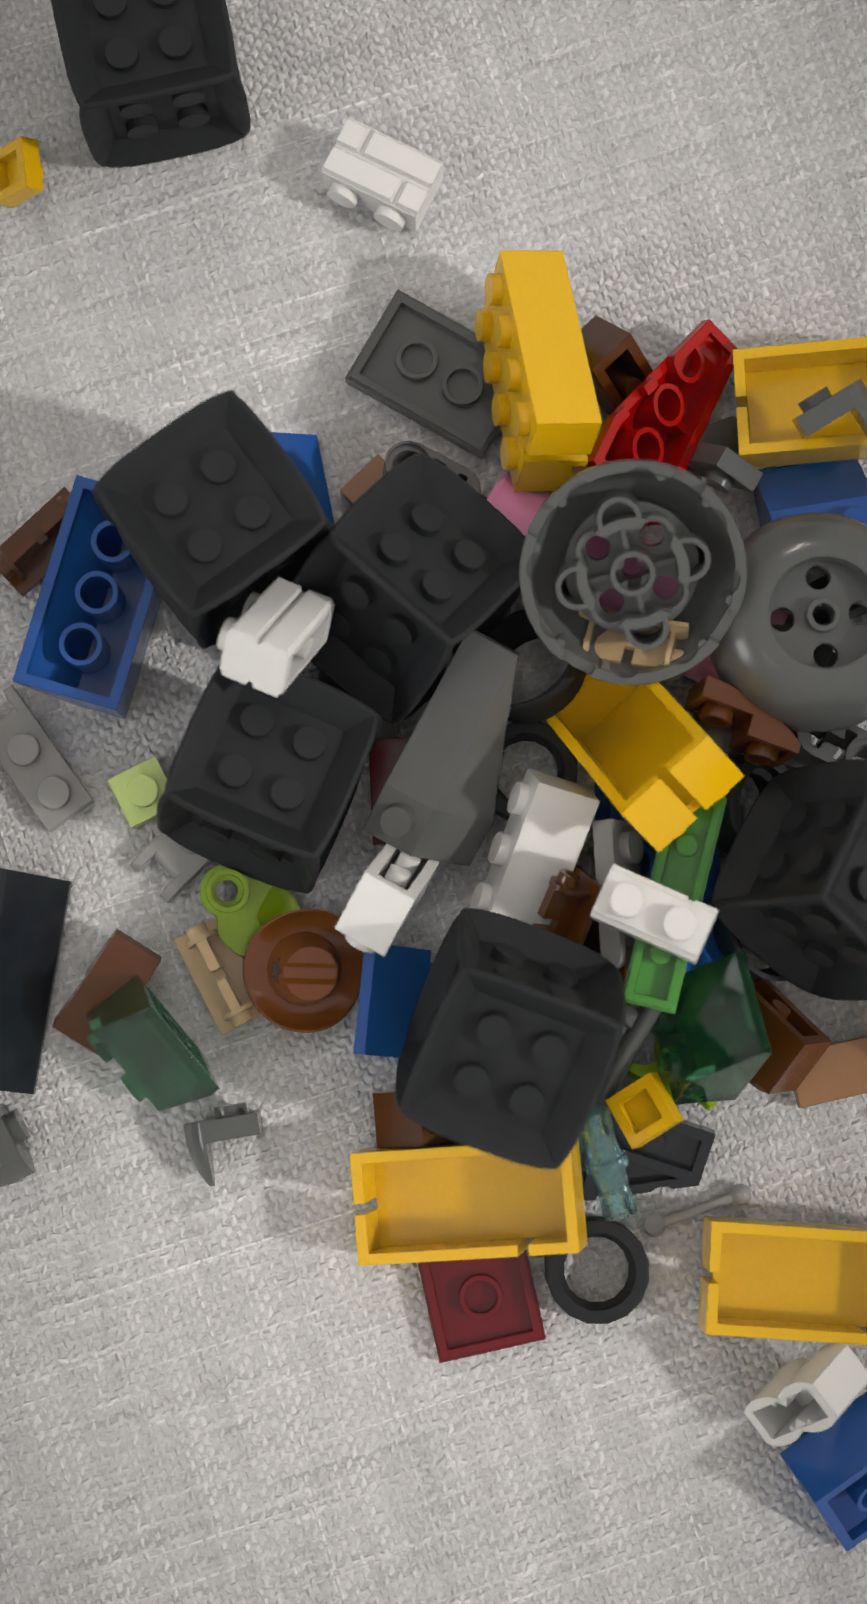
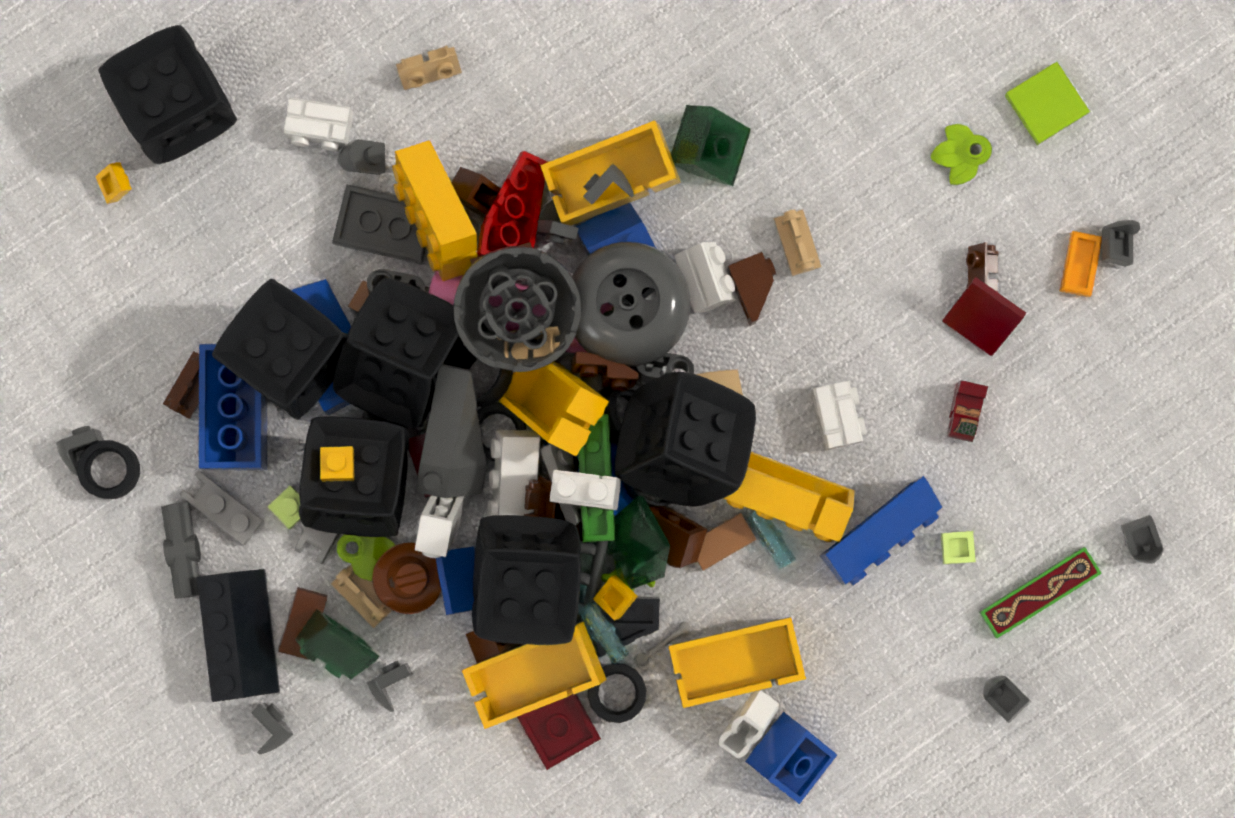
camera: 15 degrees left, 0 degrees up
(248, 741) = (337, 463): none -> yellow plate
(274, 636) = (334, 402): white brick -> none
(439, 253) = (363, 157): none -> dark grey plate
(610, 142) = (441, 65): none -> tan hinge

